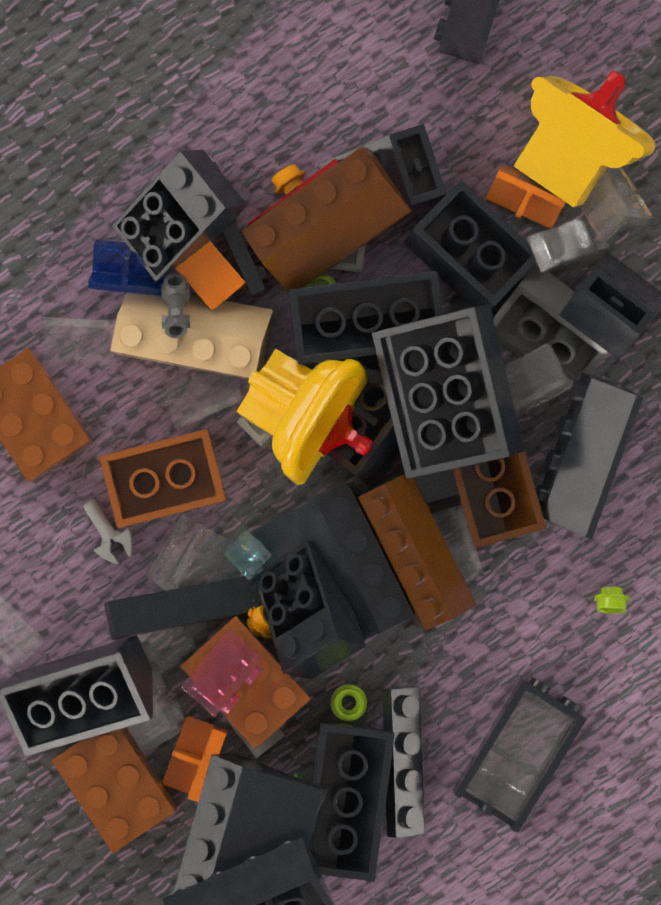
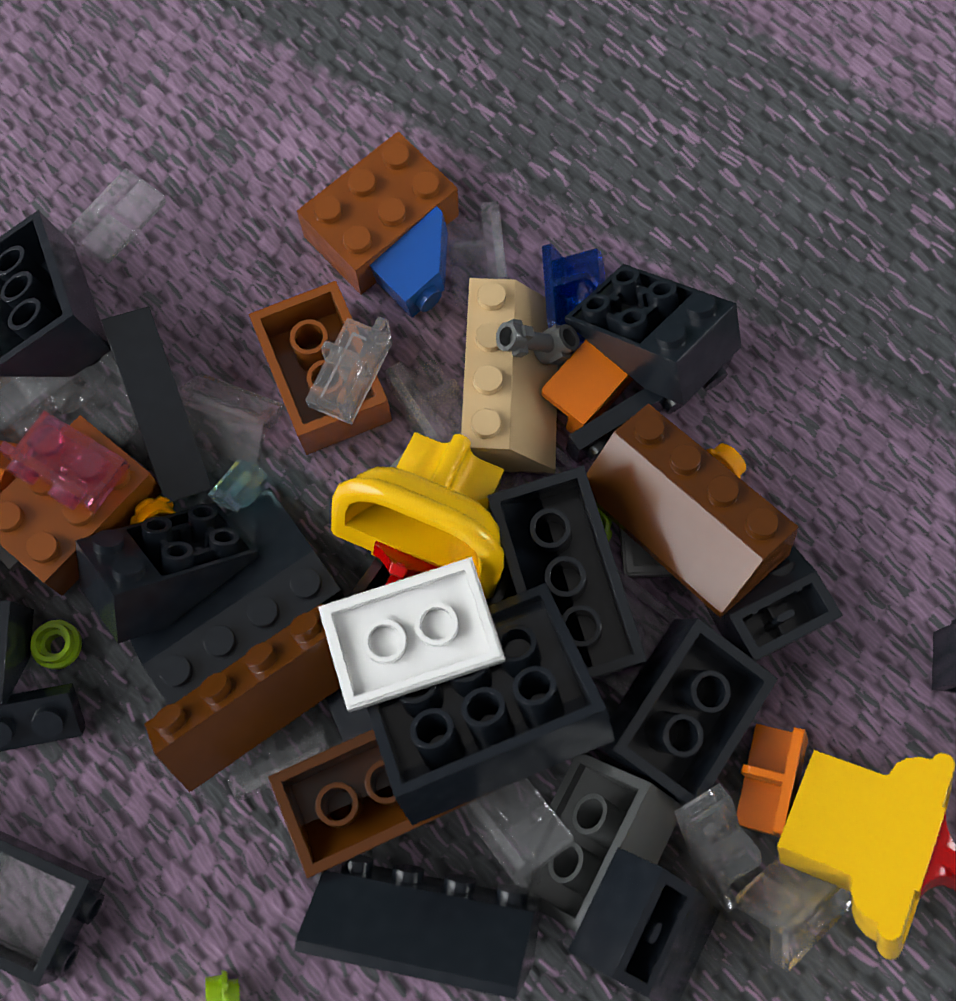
camera: 80 degrees right, 15 degrees down
(84, 391) = (416, 265): none -> blue slope
(107, 532) = (229, 323): light grey bar -> none
(180, 454) = (349, 368): none -> clear panel
(398, 432) = (410, 634): none -> white tile

